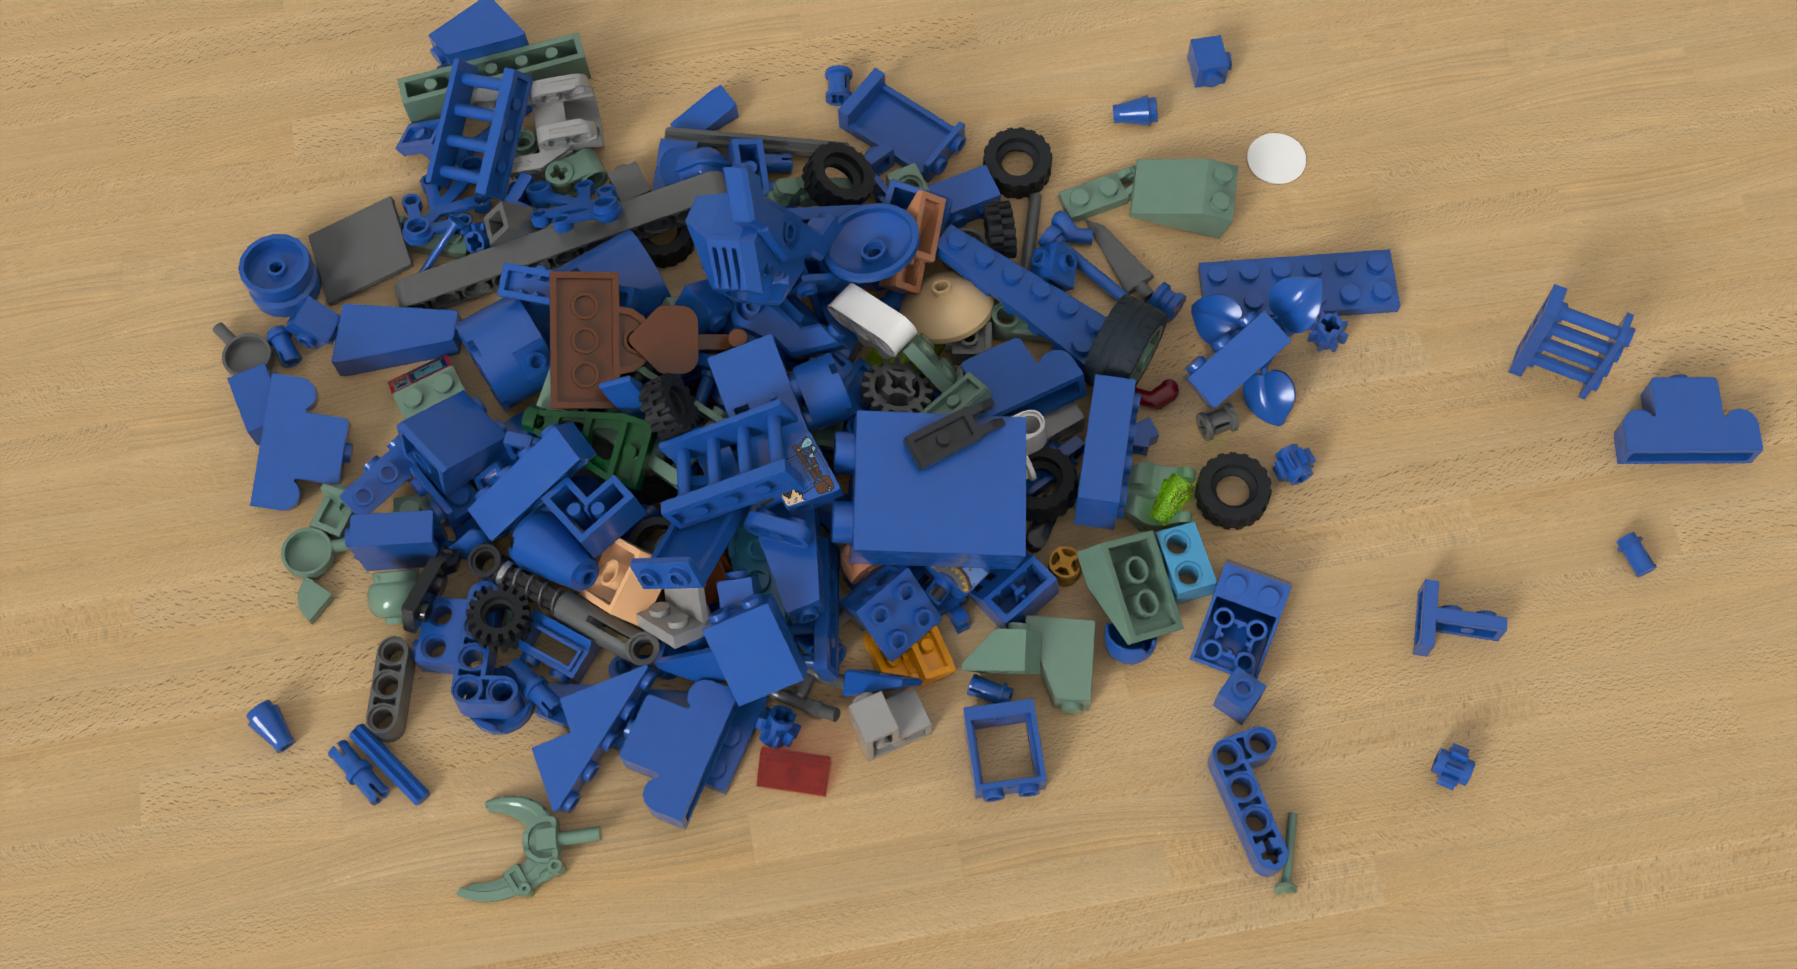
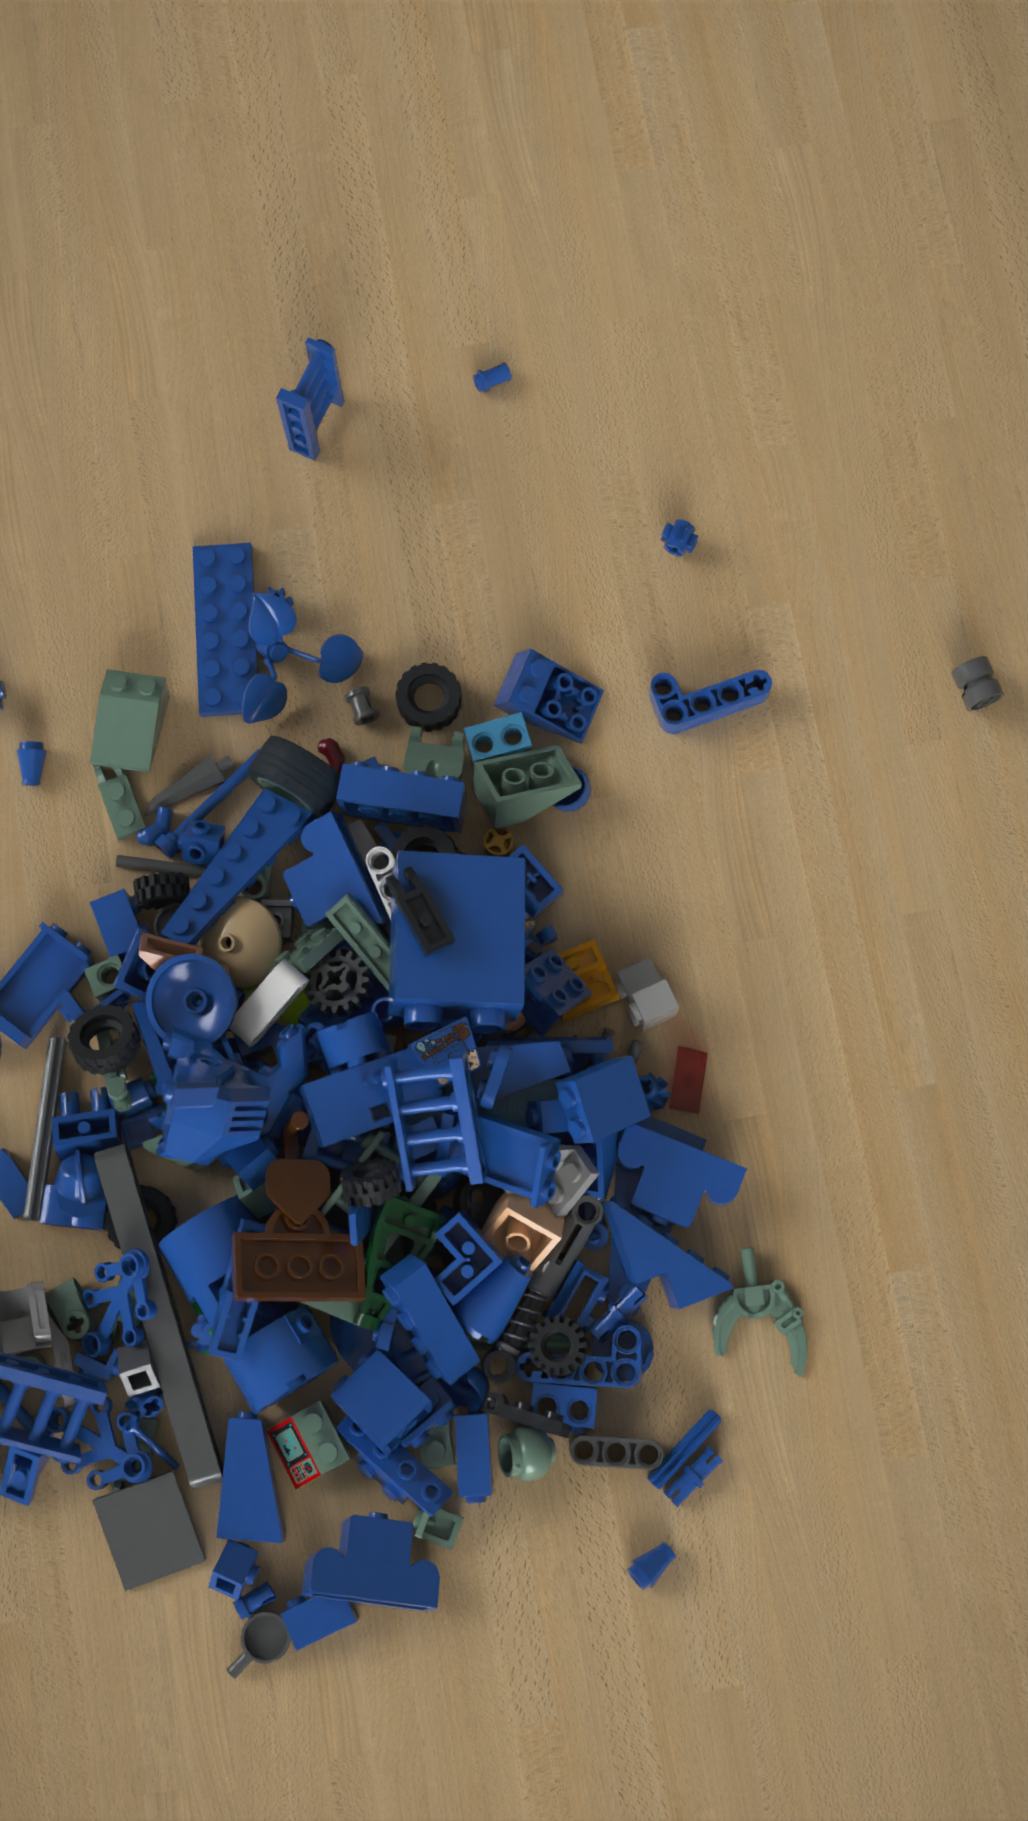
camera: 90 degrees left, 10 degrees up
(279, 274) = (178, 1630): blue wheel -> none
(310, 552) = (478, 1545): sand green piece -> none
(313, 599) = (524, 1540): sand green tile -> none
(628, 181) = (89, 1252): dark grey brick -> none
(864, 680) = (611, 1007): blue slope -> none
(989, 690) = (614, 909): blue pin -> none
(1000, 715) = (700, 881): blue window -> none
(1007, 652) = (587, 889): sand green slope -> none
(1024, 141) = (75, 853): black tyre -> none
(1066, 660) = (587, 845): sand green slope -> none
(1167, 300) = (240, 744): blue wheel -> none
(1171, 498) = (443, 745): clear neon green cone -> none
(1235, 357) = (312, 681): blue brick -> none
(1239, 695) = (619, 701): blue brick -> none
(1276, 158) = (86, 639): white sticker -> none
(1285, 885) = (739, 671): sand green piece -> none
(1294, 464) = (406, 643): blue gear -> none
(1450, 620) = (547, 543): blue bracket -> none
(1686, 425) = (375, 323): blue brick -> none

